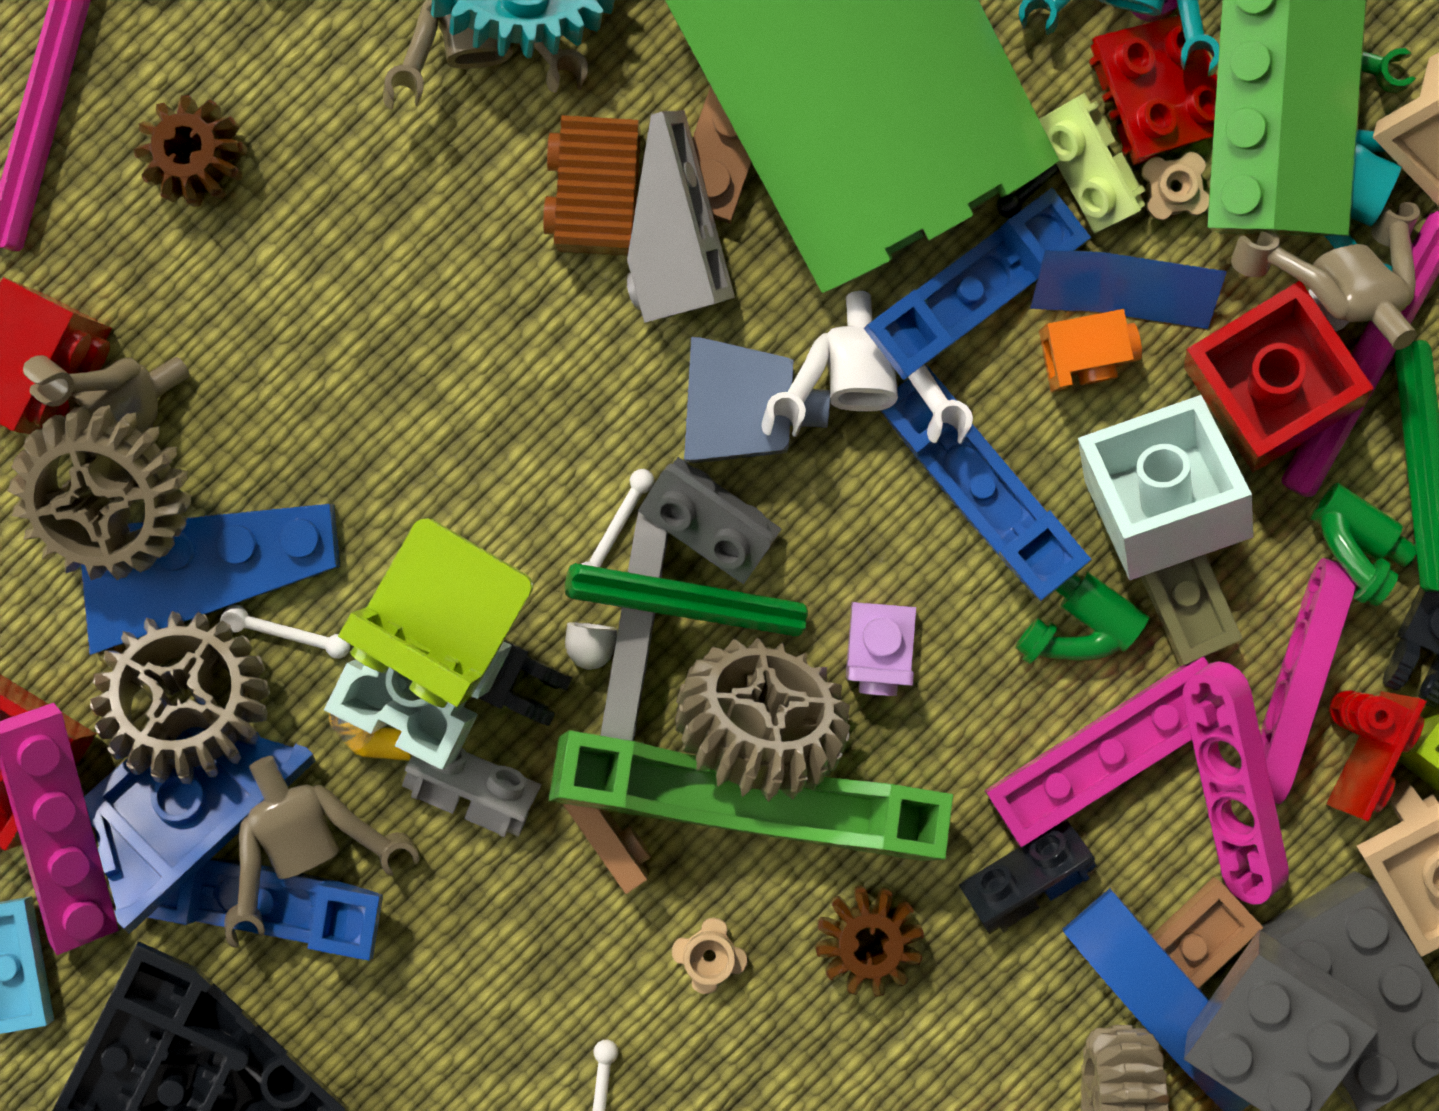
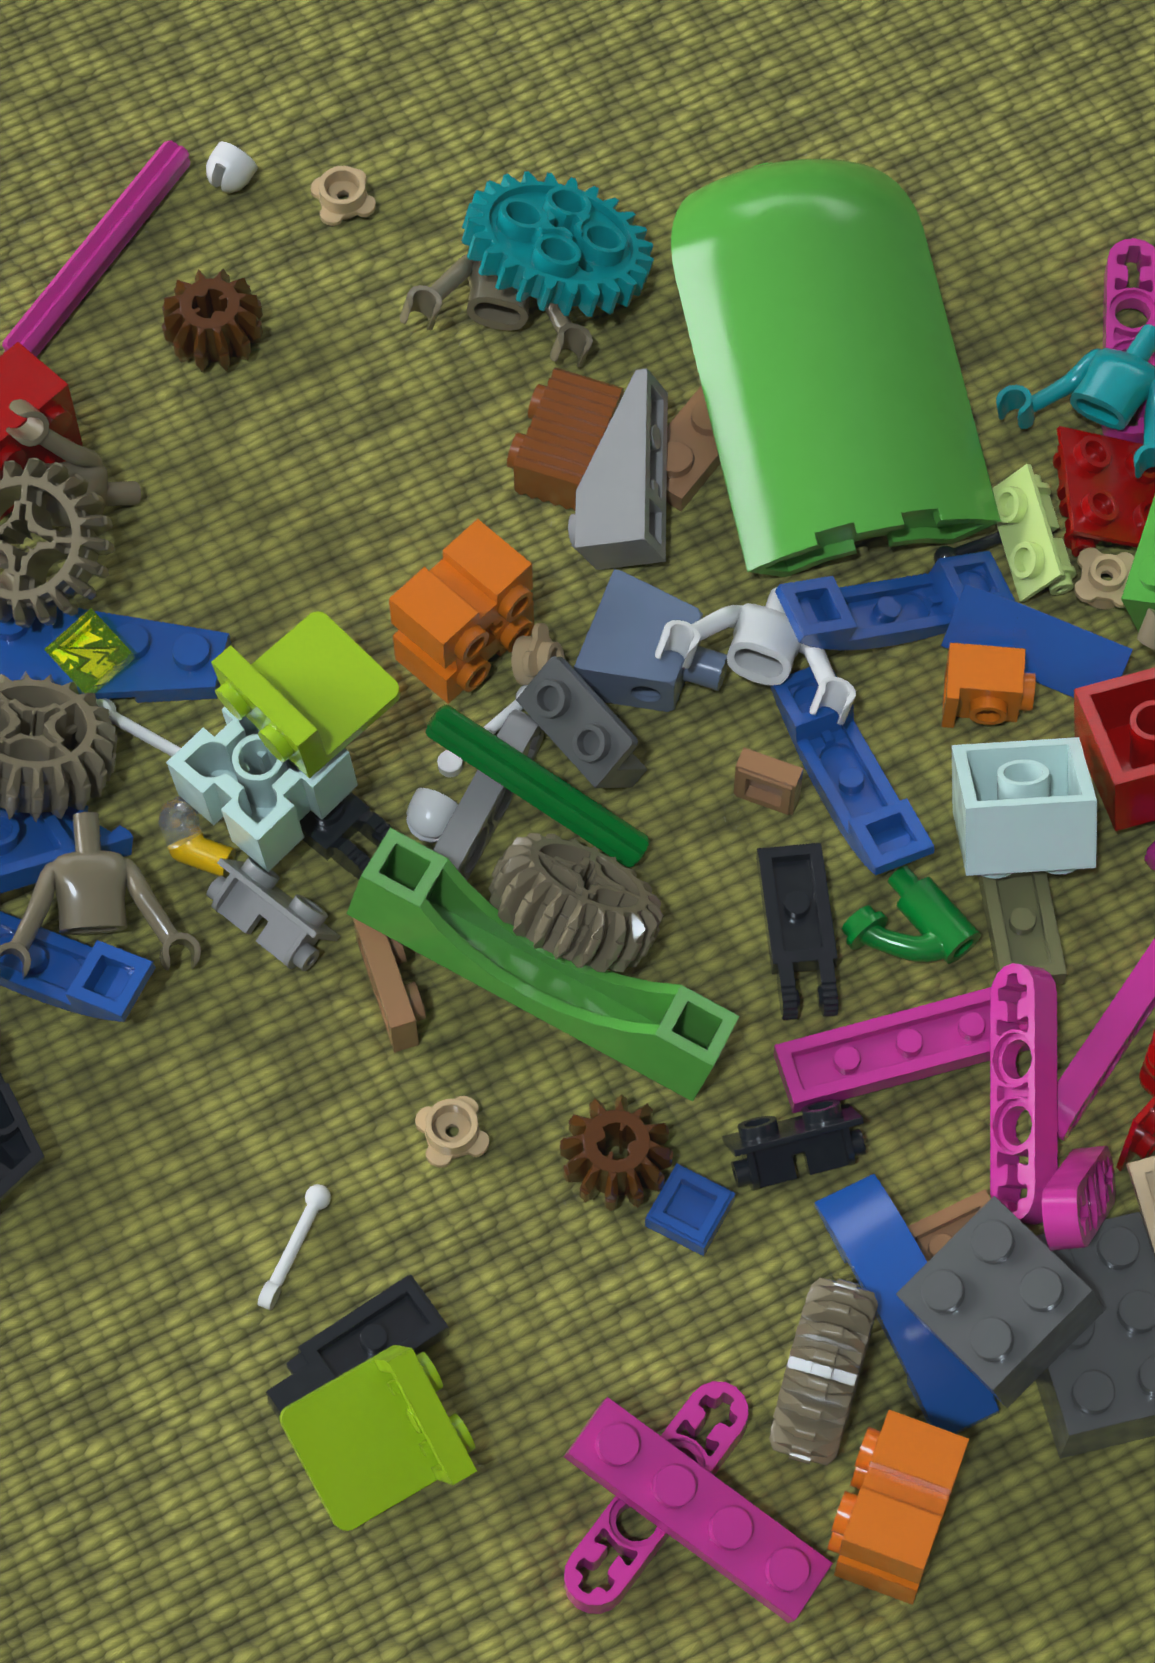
camera: 20 degrees right, 25 degrees down
(201, 576) = (89, 652): none -> clear neon green tile
(557, 430) = (463, 612): none -> orange brick
(642, 446) = (532, 653): none -> tan plate
(880, 647) = (710, 896): lavender bracket -> none
(904, 516) = (768, 781): none -> medium nougat tile
(950, 965) = (690, 1209): none -> blue tile
(973, 653) = (798, 923): none -> black hinge
(1326, 907) = (1078, 1198): none -> dark pink beam

